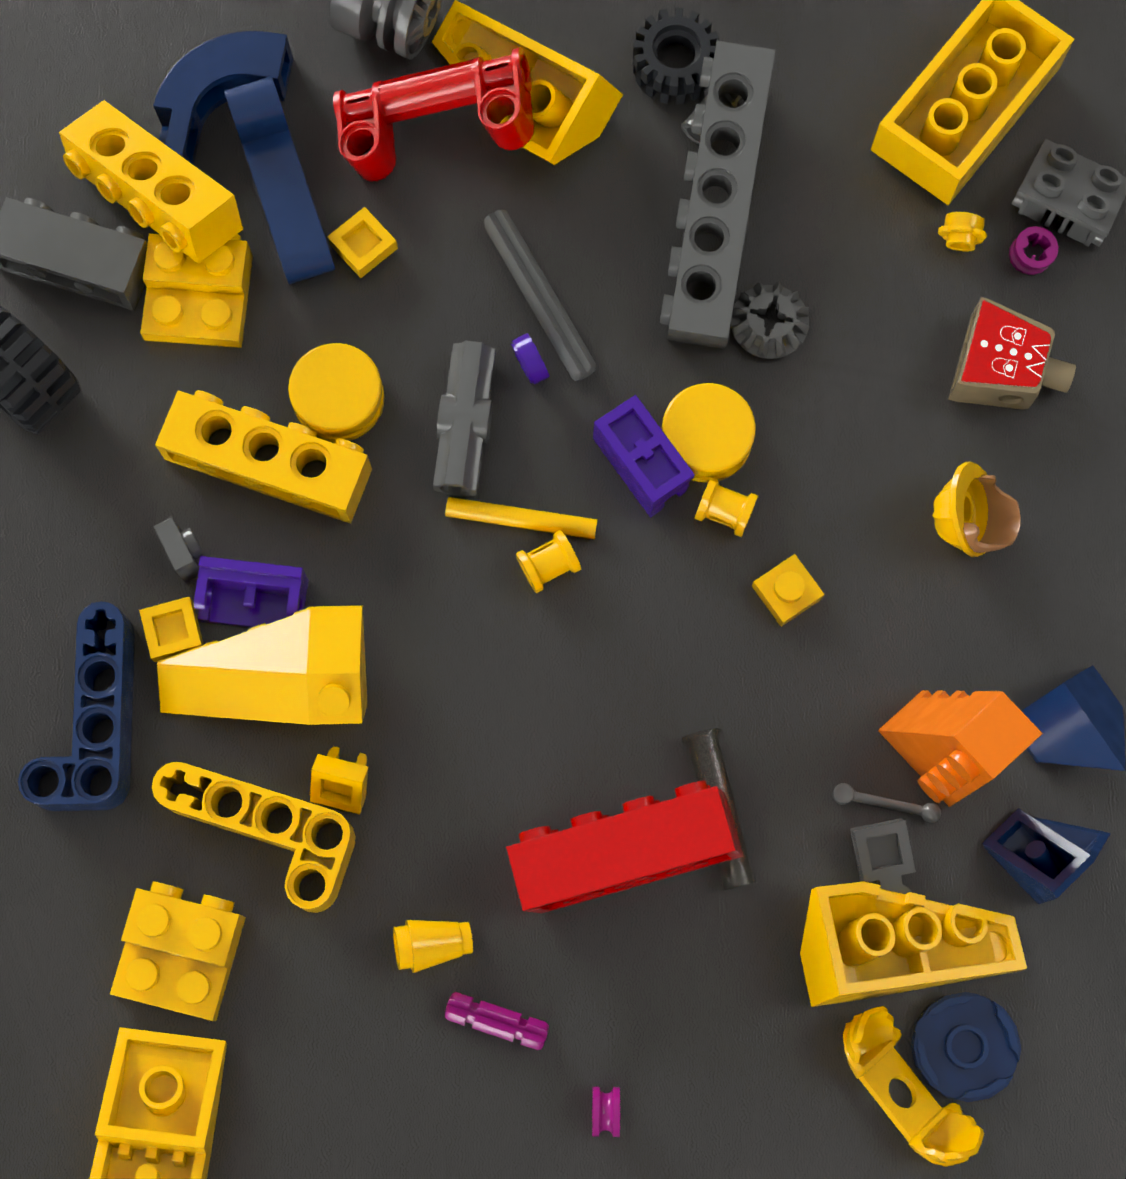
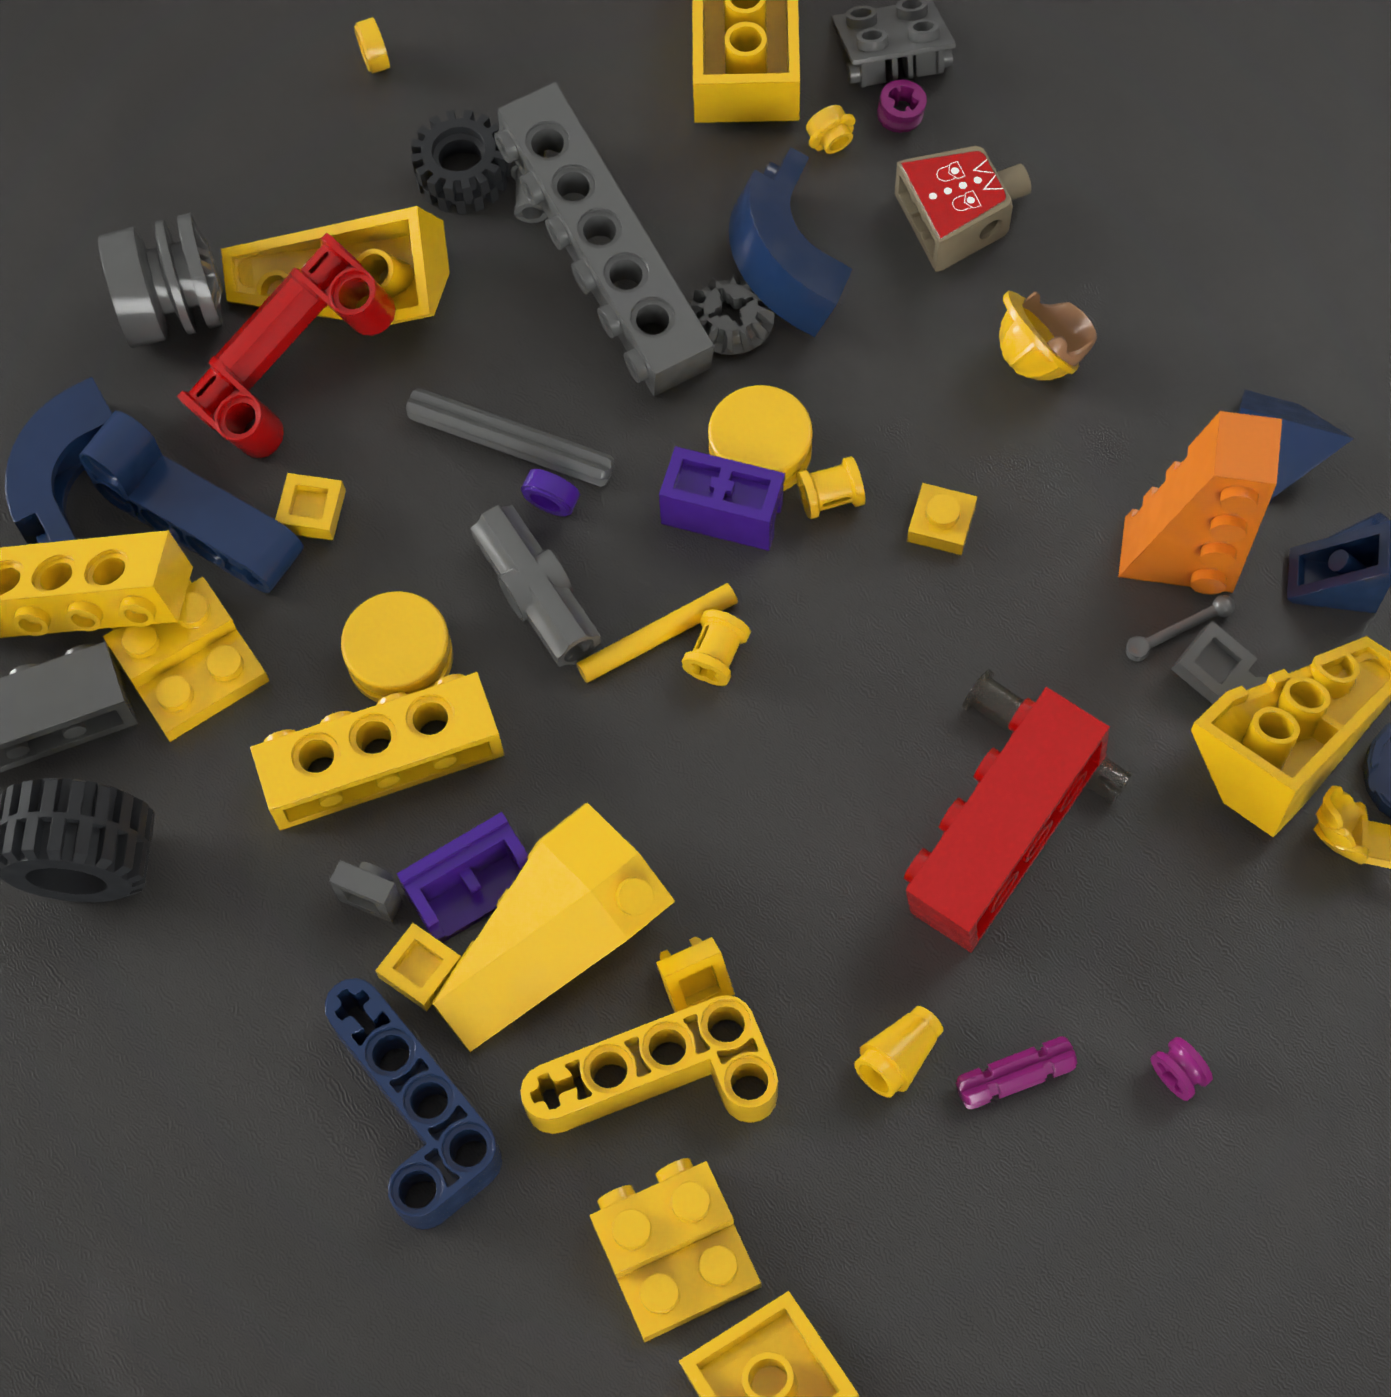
camera: 35 degrees left, 10 degrees down
(830, 297) = (775, 256): none -> dark blue arch

